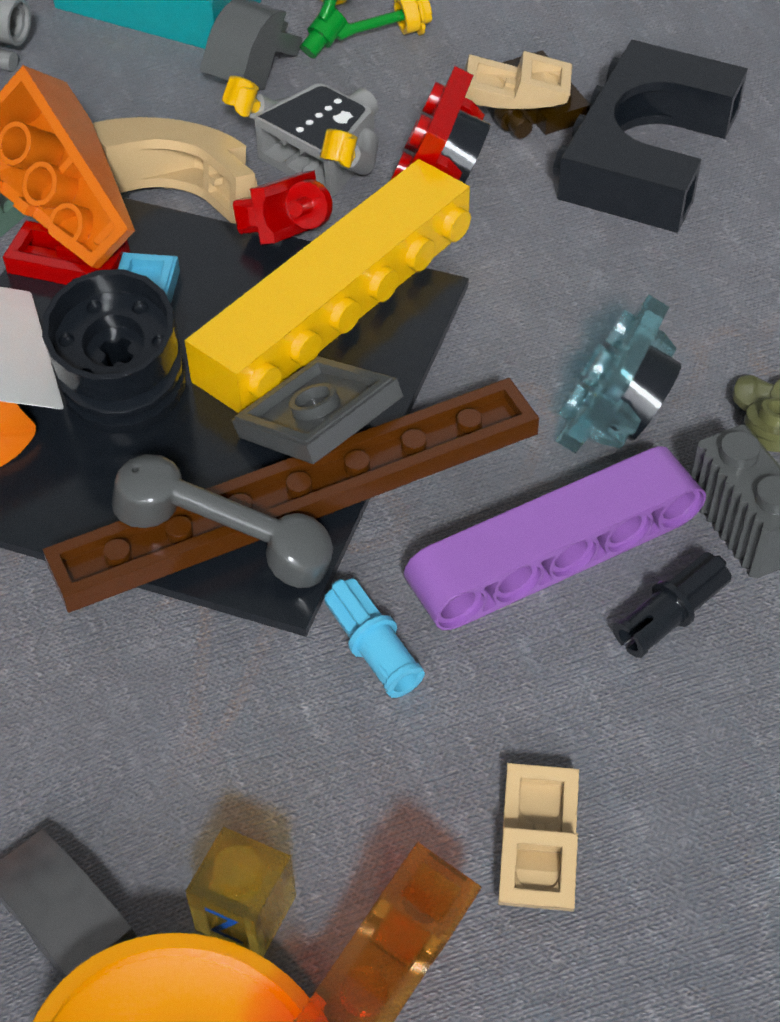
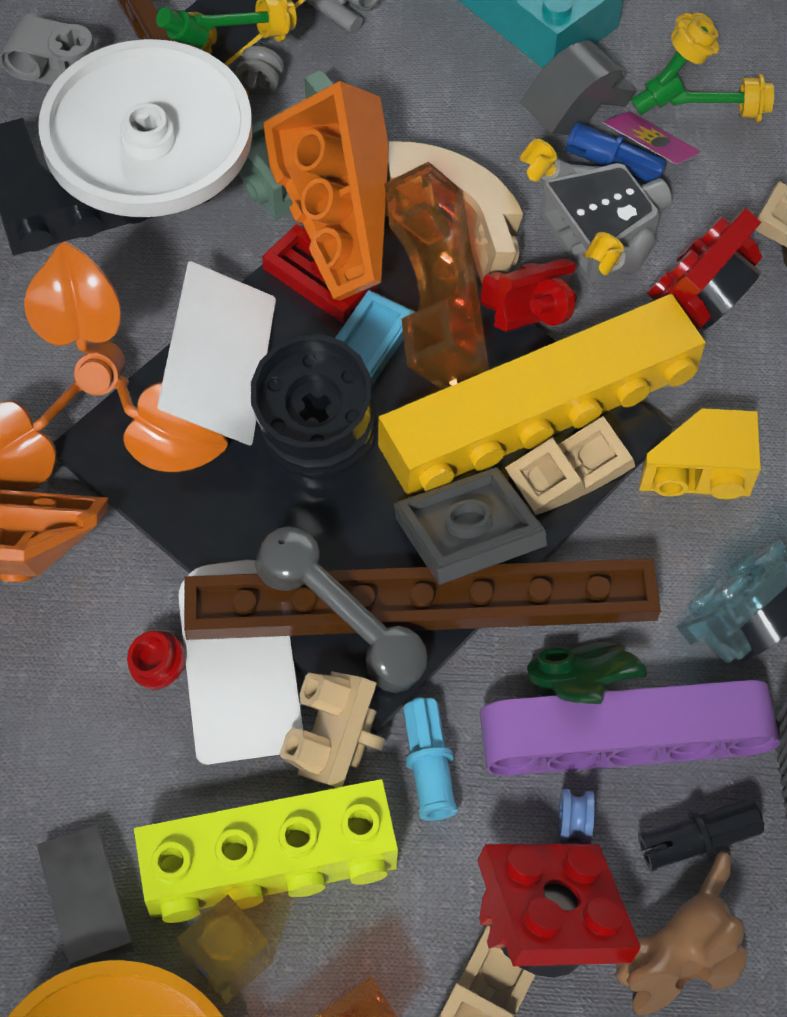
camera: 20 degrees right, 10 degrees up
(41, 647) = (156, 659): none -> red plate
(147, 645) = (239, 688): none -> white sticker
(211, 245) = (446, 333): none -> clear orange arch
(240, 778) = (266, 850): none -> neon yellow brick
(268, 636) = (338, 731): none -> tan hips
(286, 84) = (608, 150): none -> blue axle
(334, 66) = (652, 137): none -> dark pink sticker
(394, 333) = (571, 469): none -> tan slope
(488, 500) = (583, 671): none -> dark green plate
(513, 289) = (708, 455): none -> yellow slope
(546, 632) = (575, 817): none -> medium blue bush
(568, 714) = (554, 907): none -> red piece
(721, 698) = (696, 943): none -> medium nougat animal

